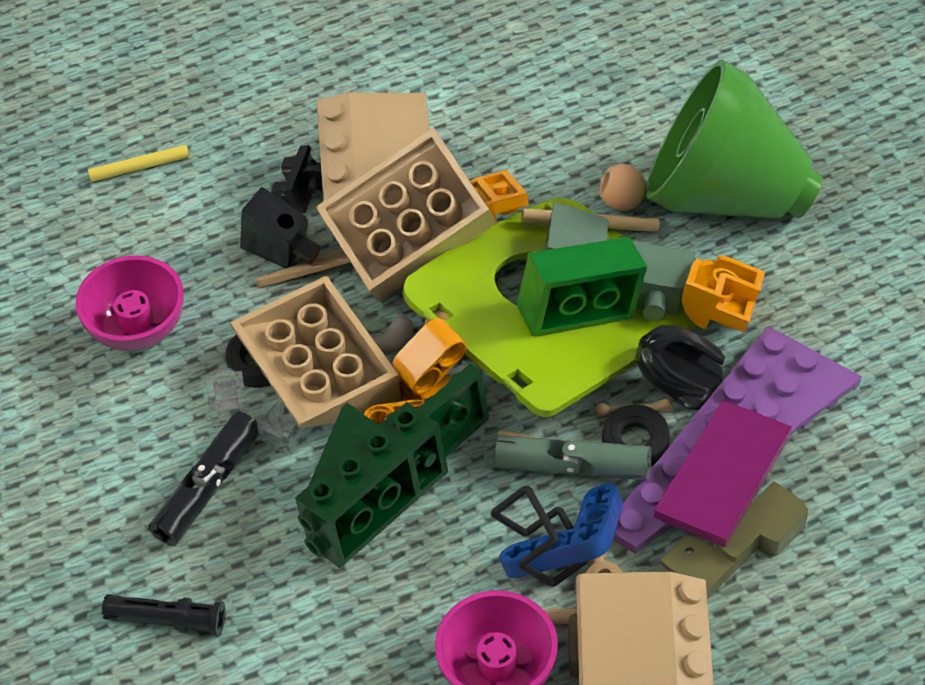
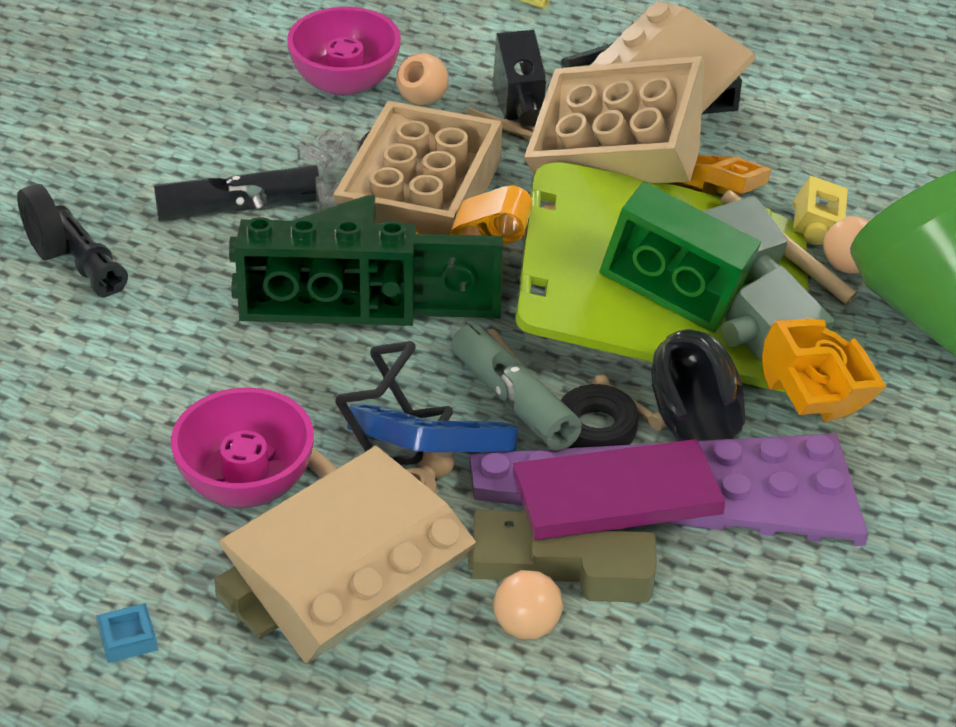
camera: 45 degrees right, 10 degrees down
(118, 620) = (41, 221): none -> black tyre
(206, 278) = (422, 79): none -> light nougat piece
(573, 178) = (814, 218): none -> light yellow brick
(766, 590) = (528, 605): none -> light nougat piece

